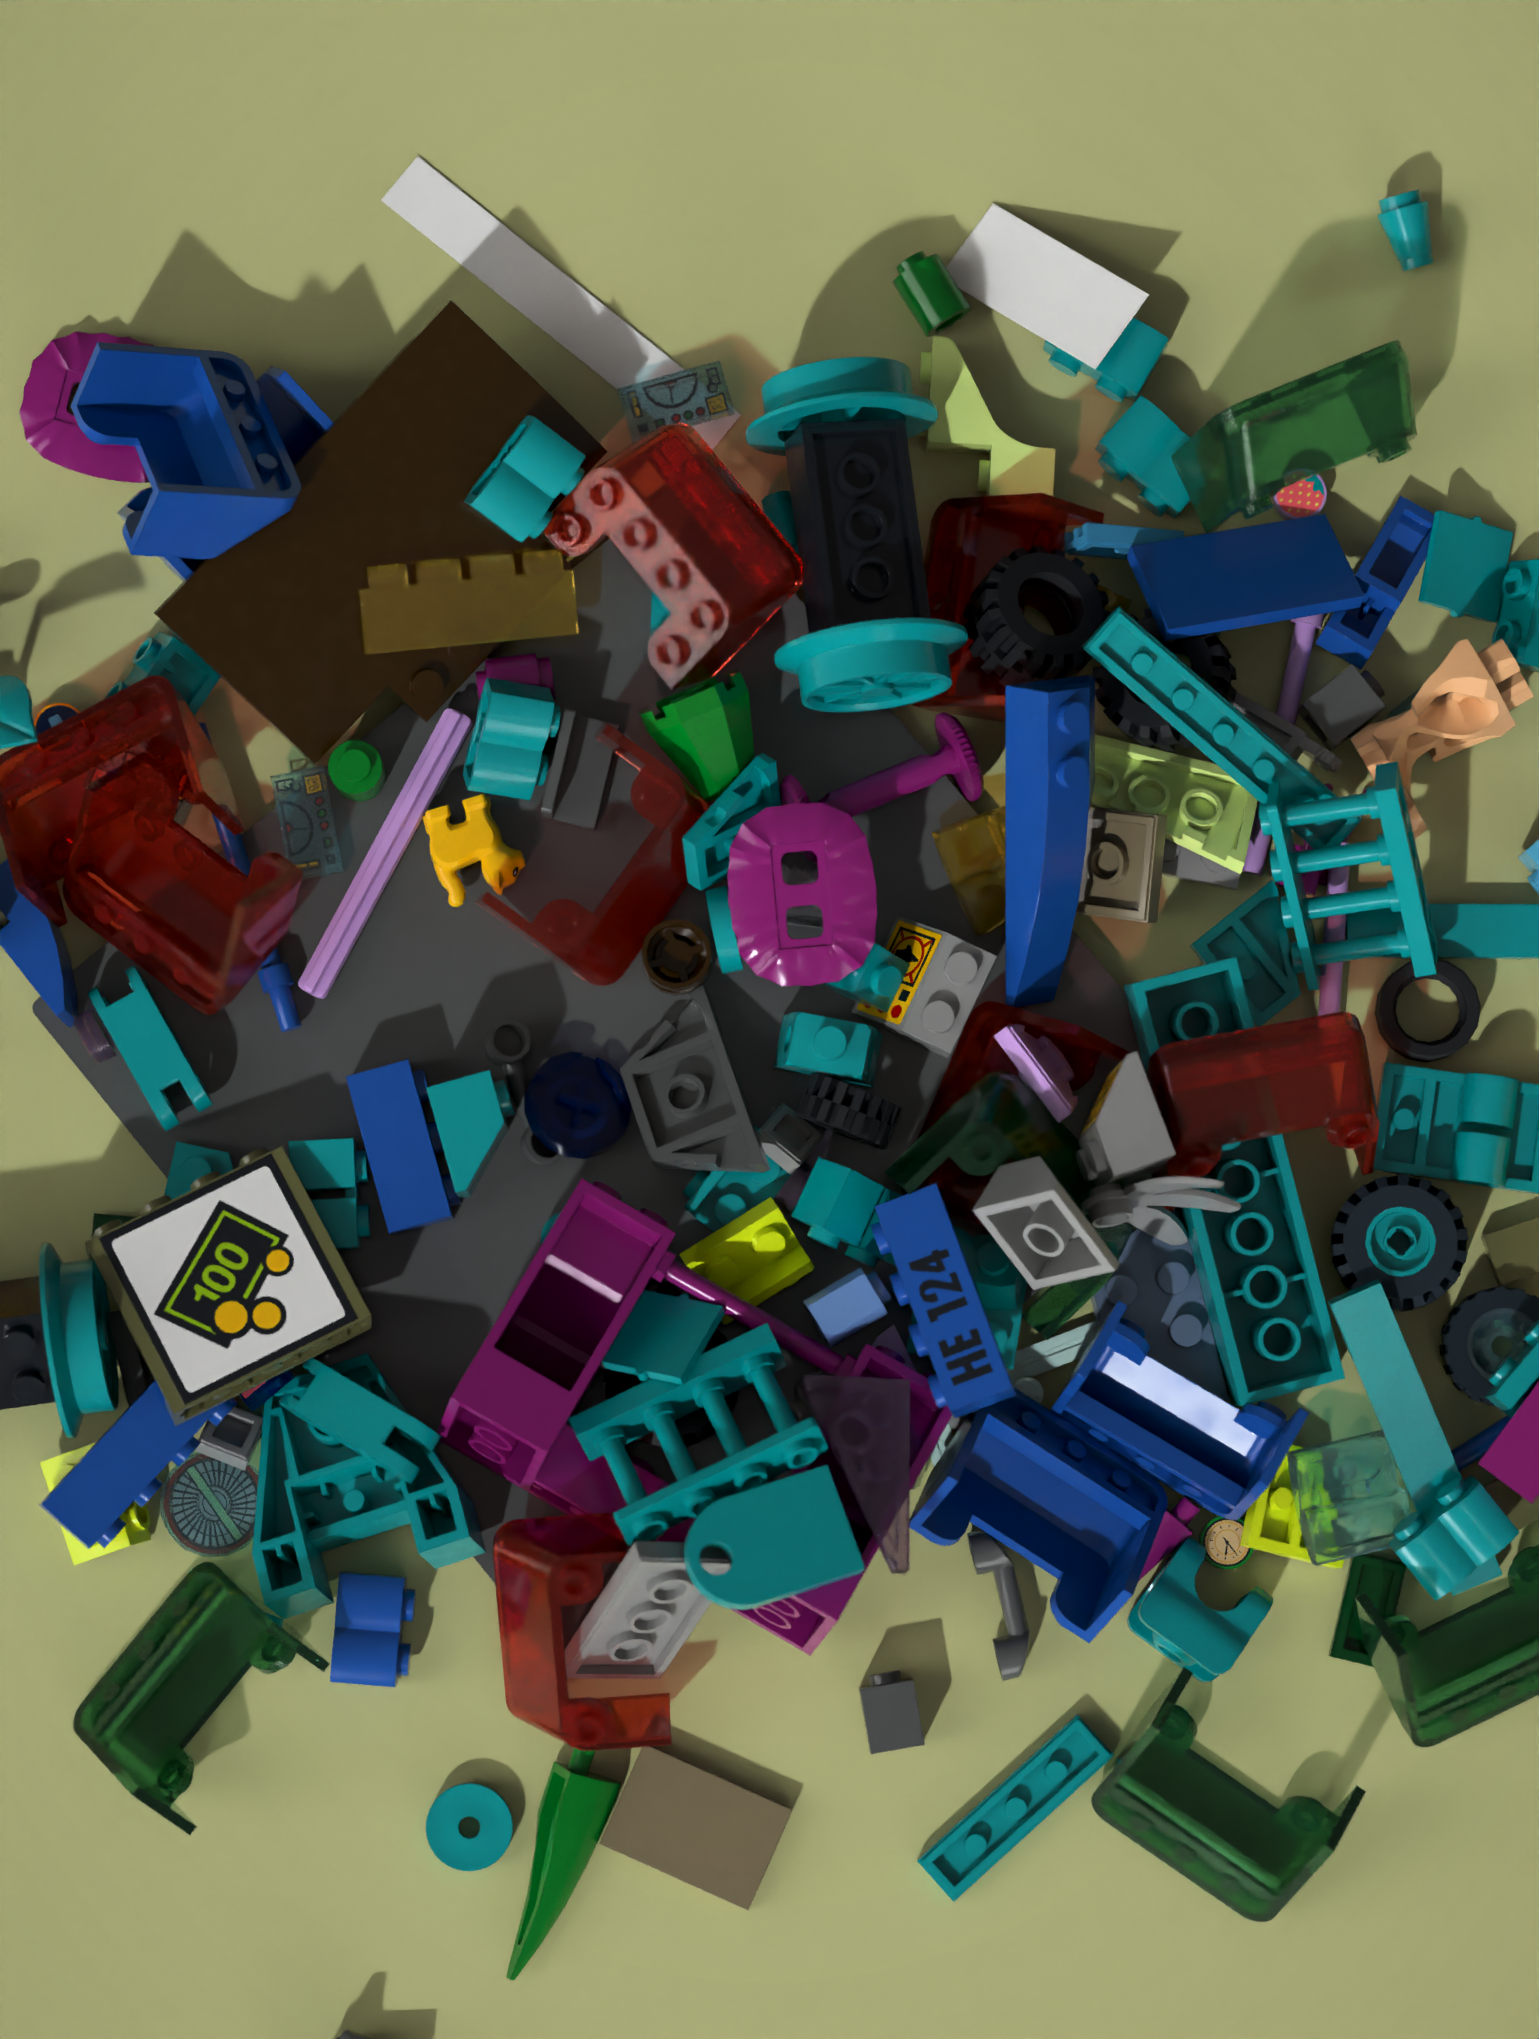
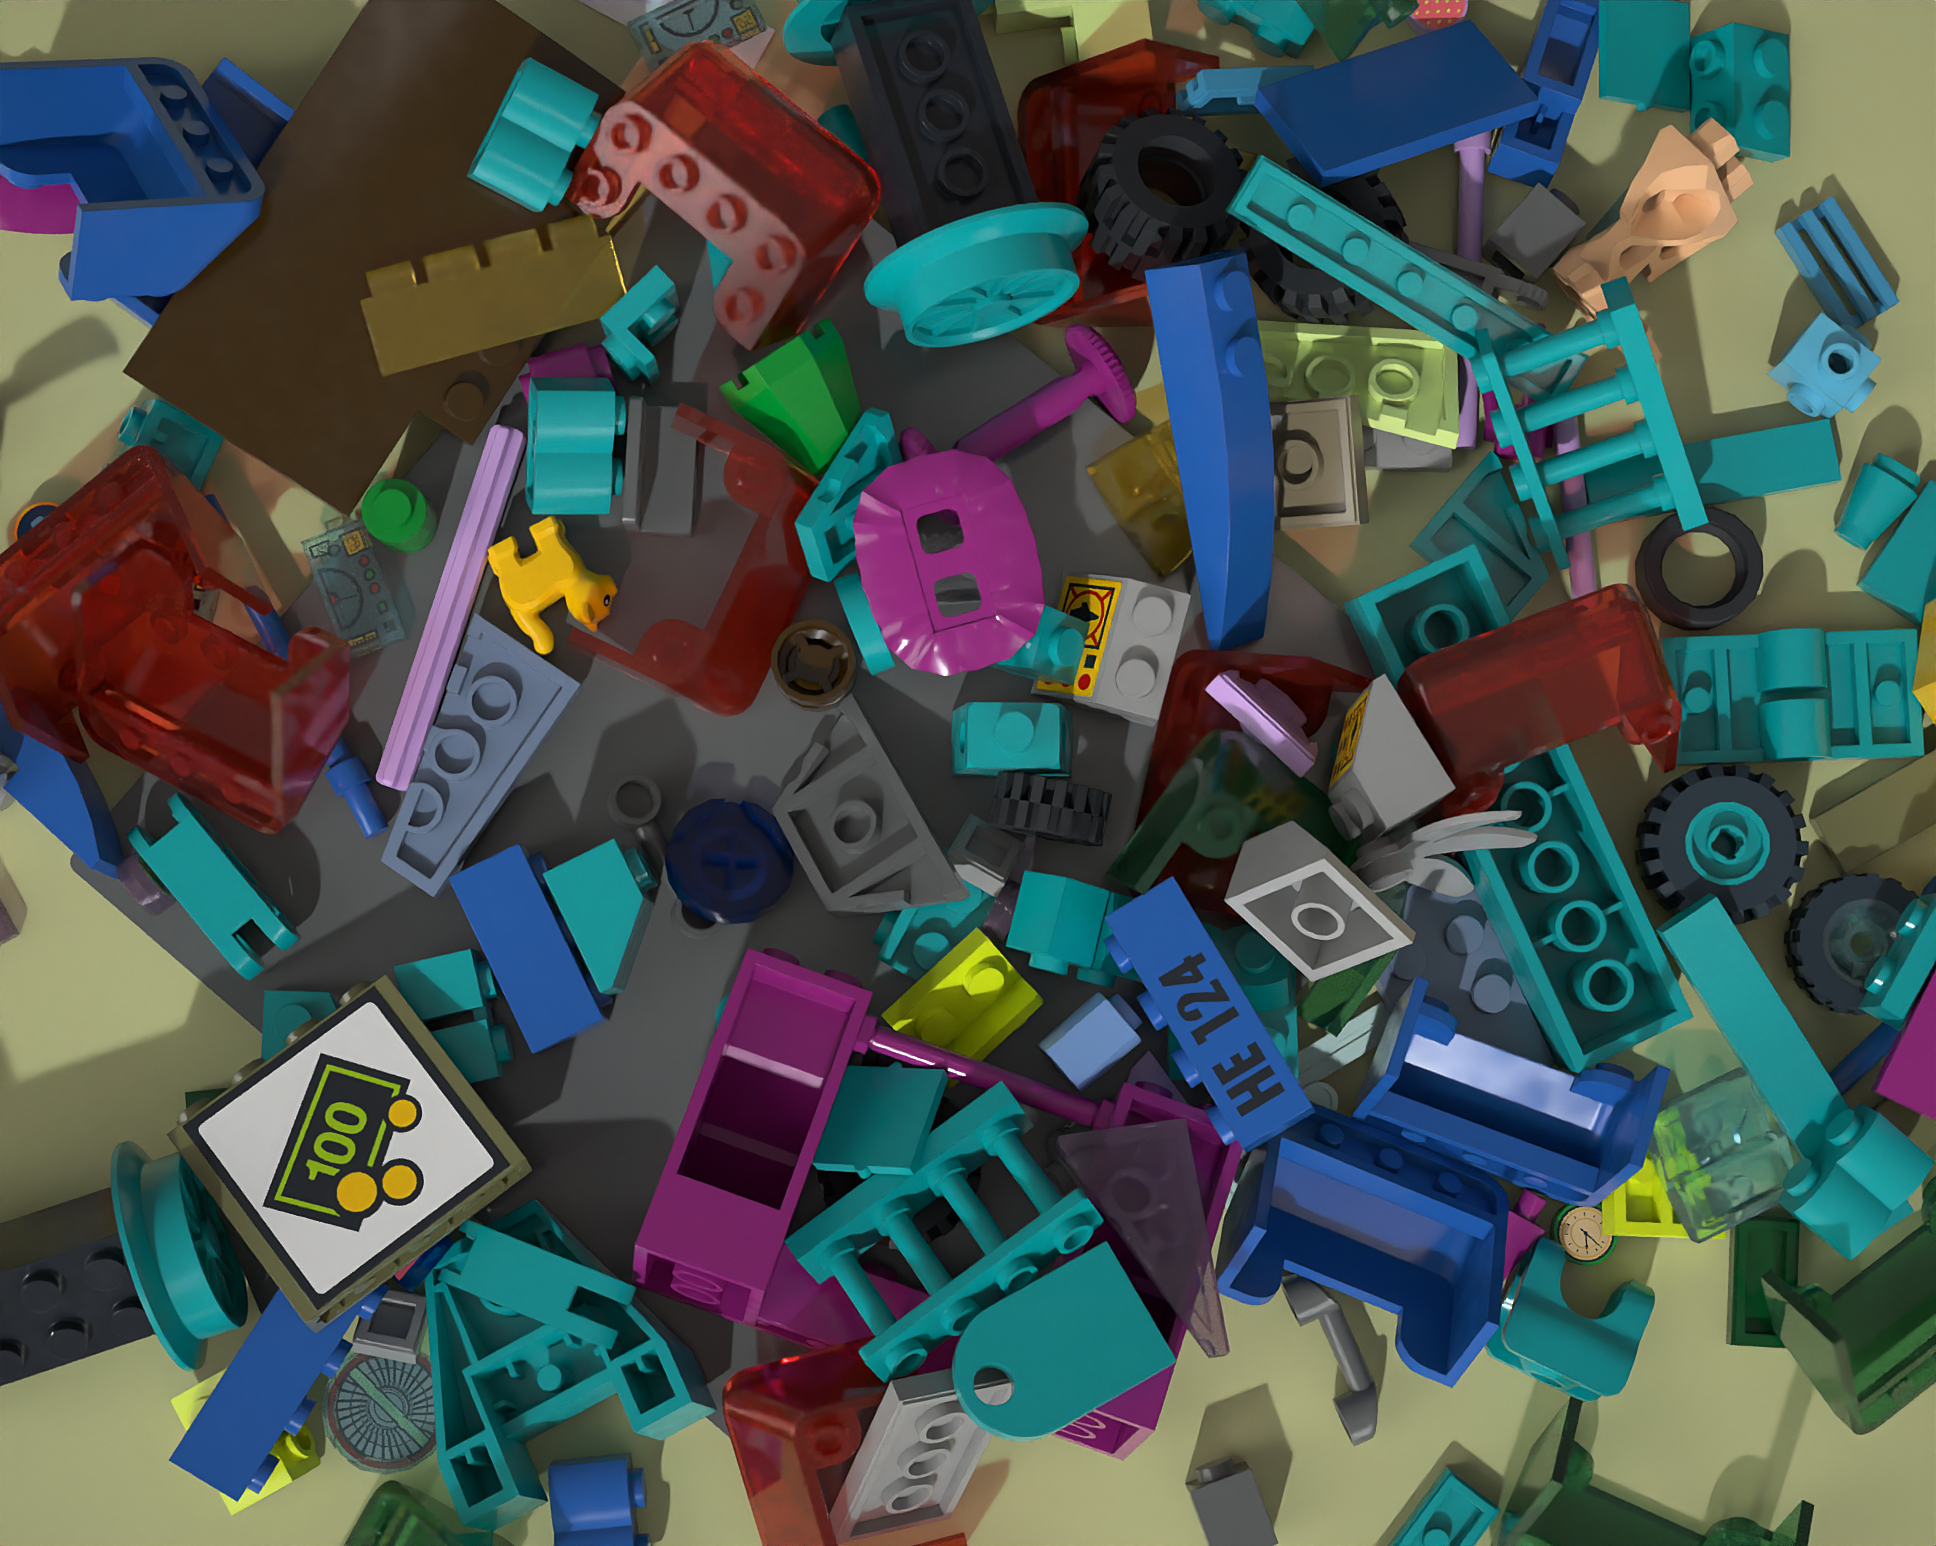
camera: 10 degrees left, 0 degrees up
(390, 971) = (486, 735): none -> sand blue wing
(588, 642) = (638, 318): none -> teal bracket

